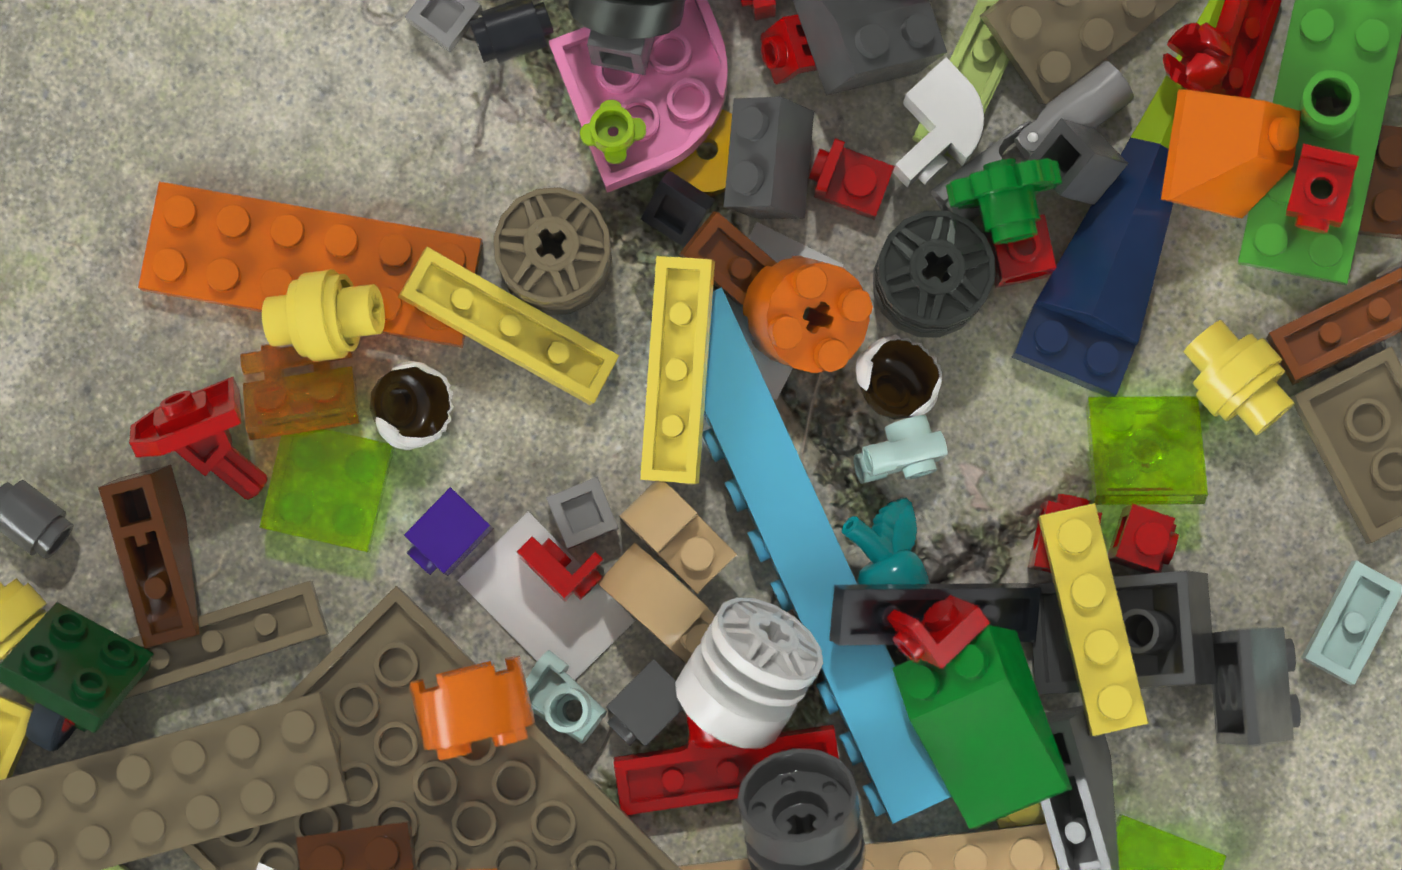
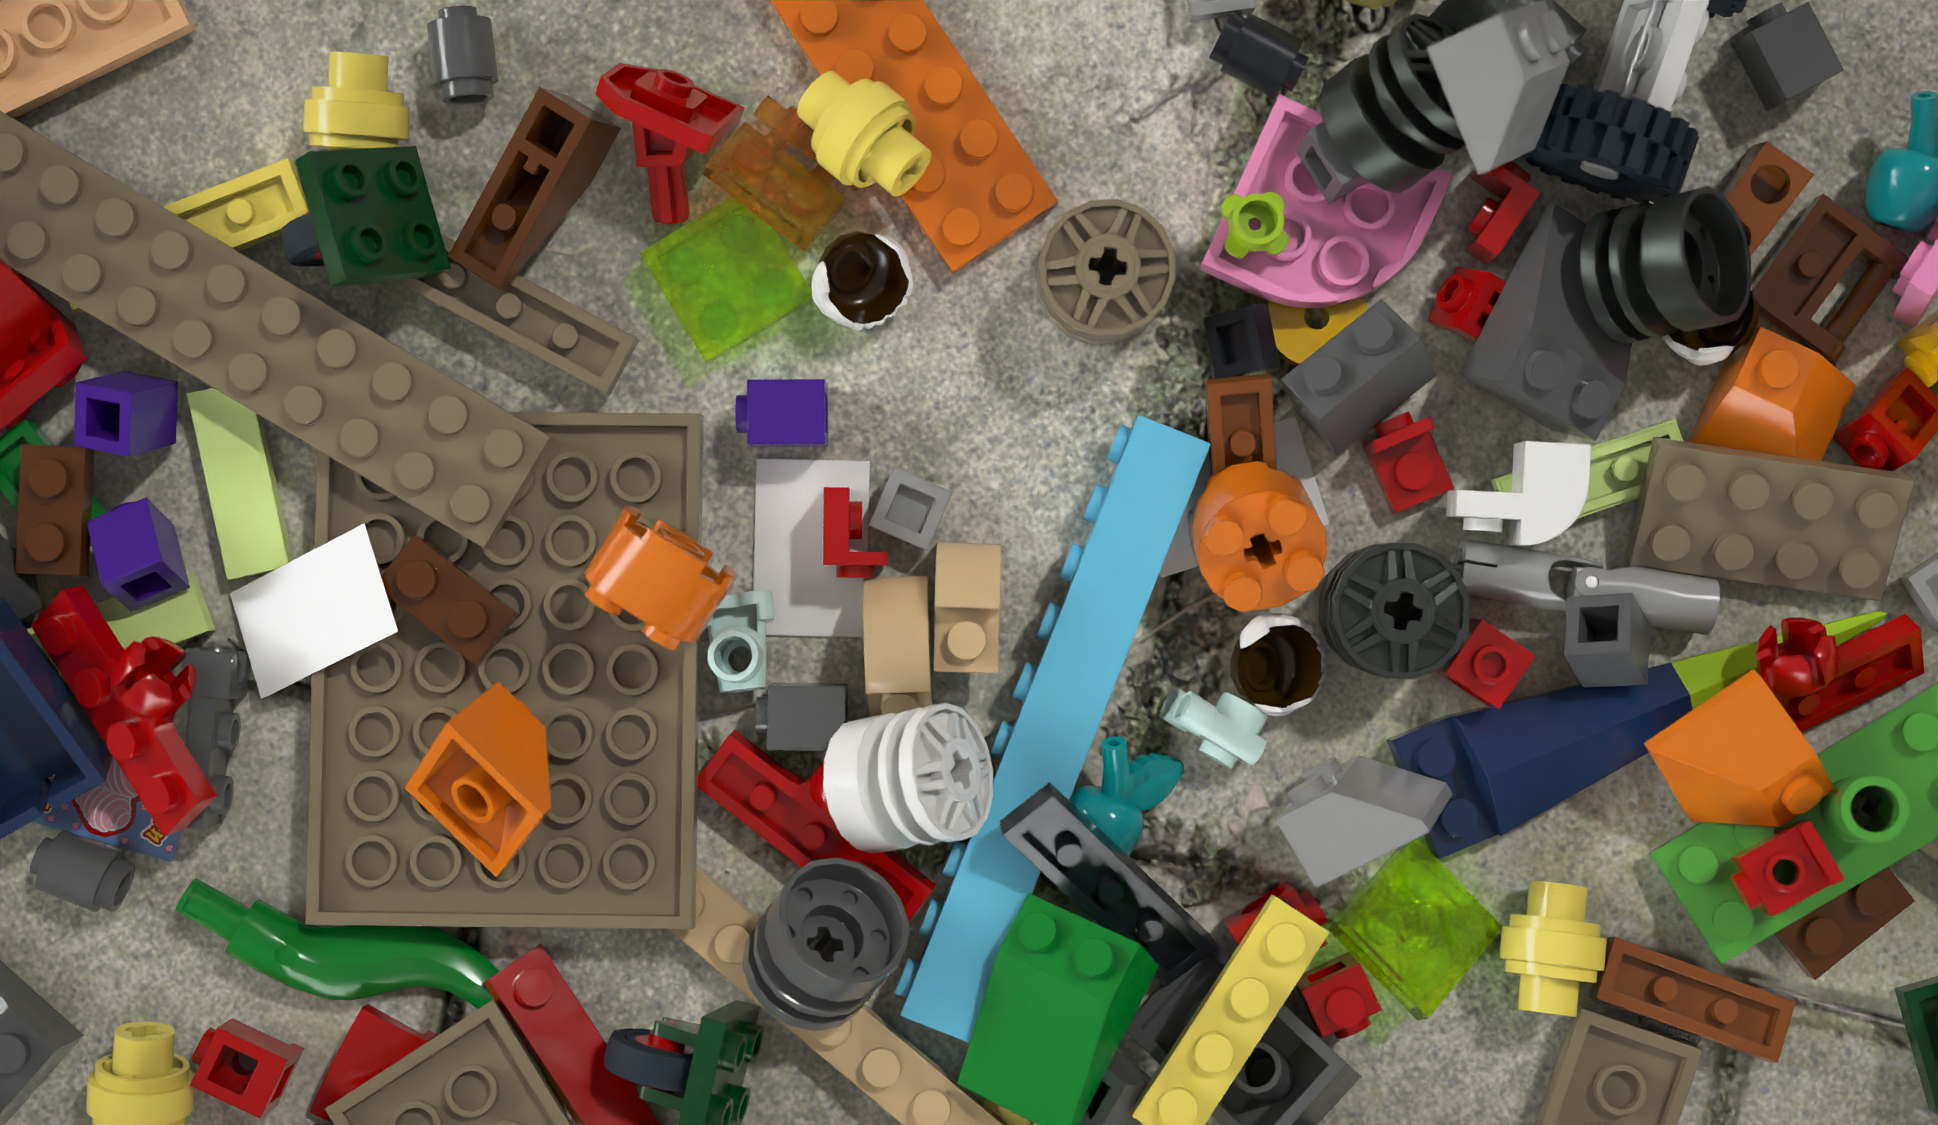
camera: 50 degrees right, 5 degrees up
(508, 326) = (1005, 295): light yellow plate -> none
(677, 369) = (1105, 474): light yellow plate -> none
(942, 633) = (1097, 909): red bracket -> none
(1006, 195) = (1520, 611): green plant -> none
(1037, 416) = (1357, 814): none -> light grey slope

